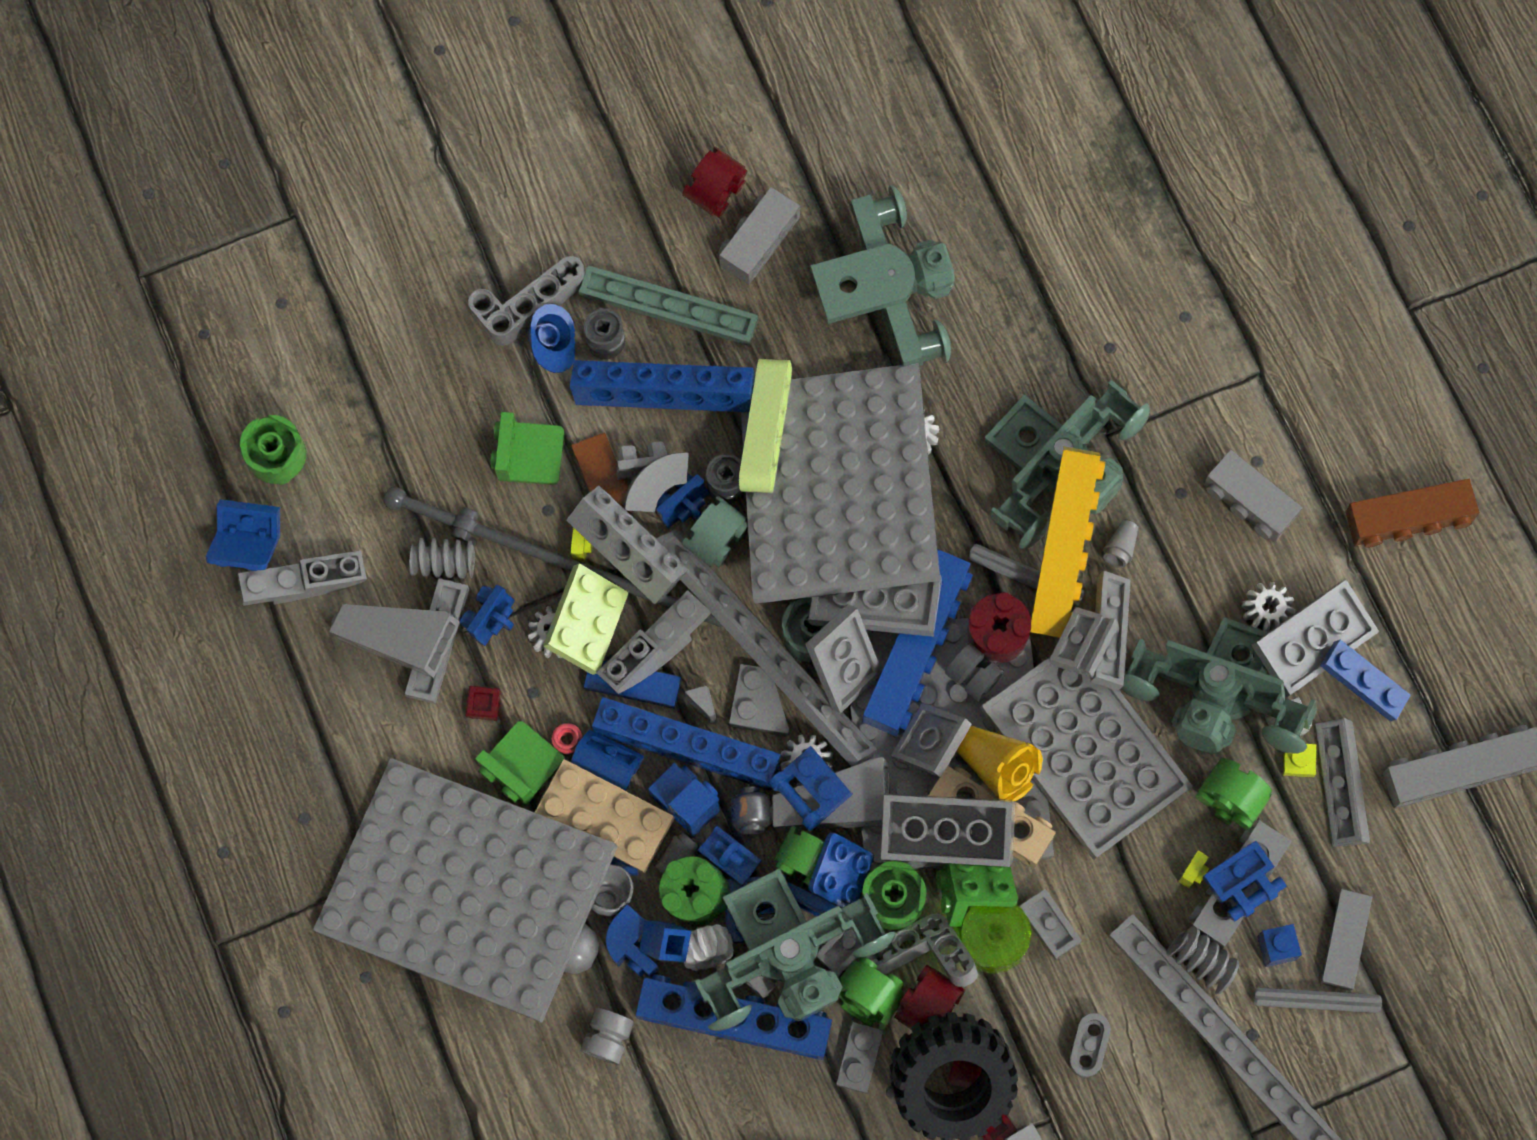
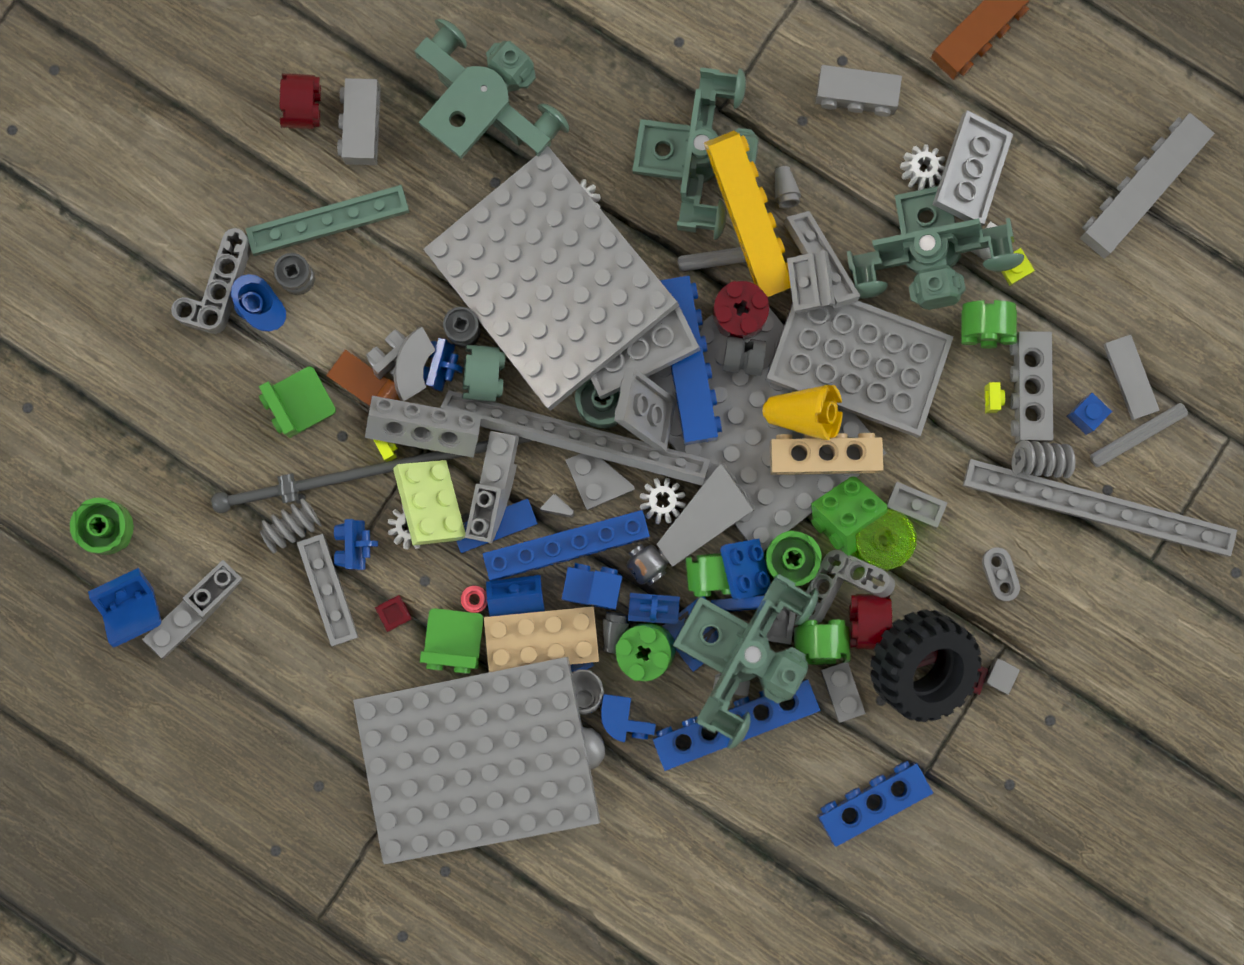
camera: 35 degrees left, 10 degrees up
(398, 634) = (302, 604): light grey slope -> none
(607, 1036) = (653, 798): light grey wheel -> none
(662, 386) = (367, 286): blue brick -> none
(665, 941) = (651, 704): blue brick -> none
(709, 947) = (682, 687): white gear -> none
(765, 426) = (467, 268): yellowish green beam -> none
(819, 782) = (685, 512): blue plate -> none
(931, 740) = (746, 427): light grey plate -> none
(948, 830) = (806, 488): light grey brick -> none
(1239, 872) = (1031, 380): blue plate -> none
(1342, 783) = (1056, 264): light grey slope -> none
(1365, 680) = (1027, 177): plate -> none

